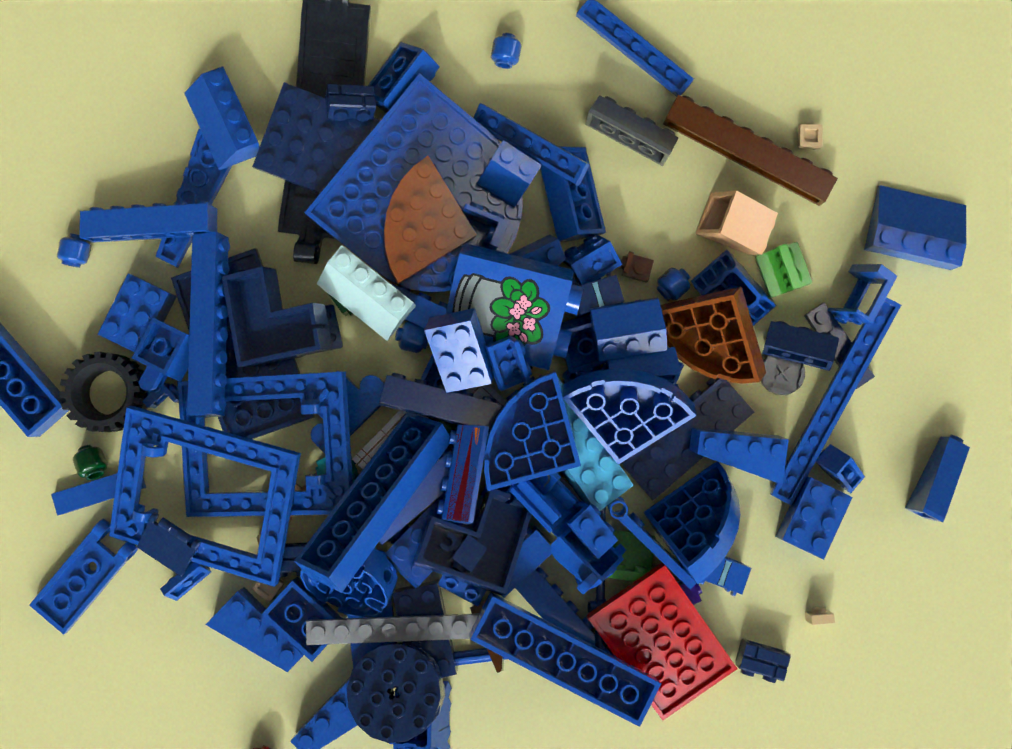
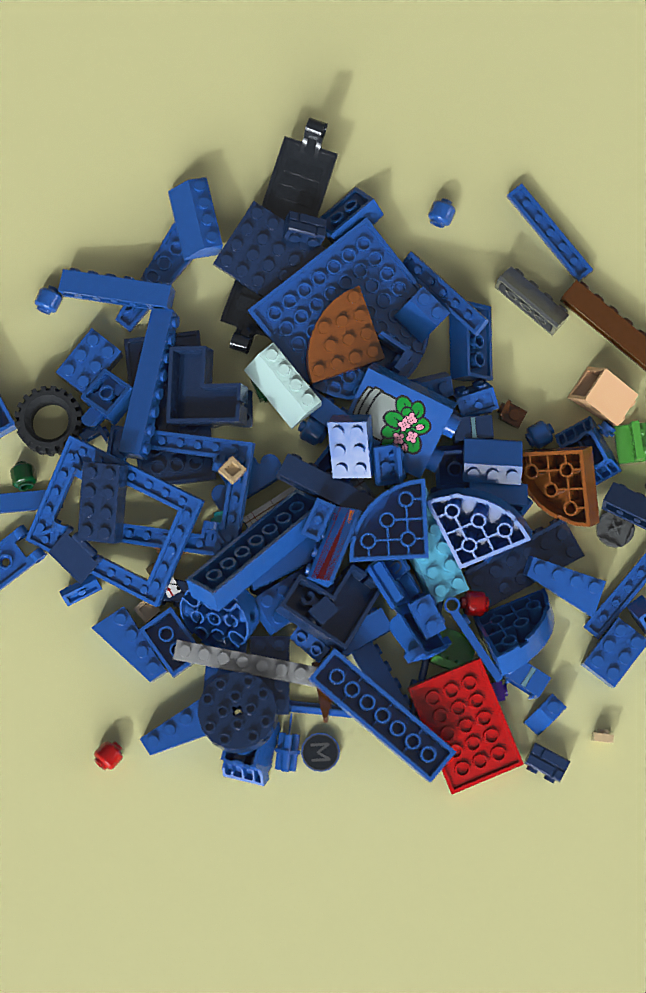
camera: 15 degrees right, 5 degrees down
(181, 480) = (102, 502): none -> dark blue brick
(289, 556) = (173, 588): none -> white sticker
(324, 410) = (232, 470): none -> tan plate
(439, 448) = (318, 520): none -> blue tile
(464, 712) = (287, 750): none -> blue piece
(502, 704) = (320, 752): none -> black tile
(642, 497) = (474, 603): none -> red head
(749, 261) = (606, 429): none -> blue plate
(749, 605) = (545, 714): none -> blue slope

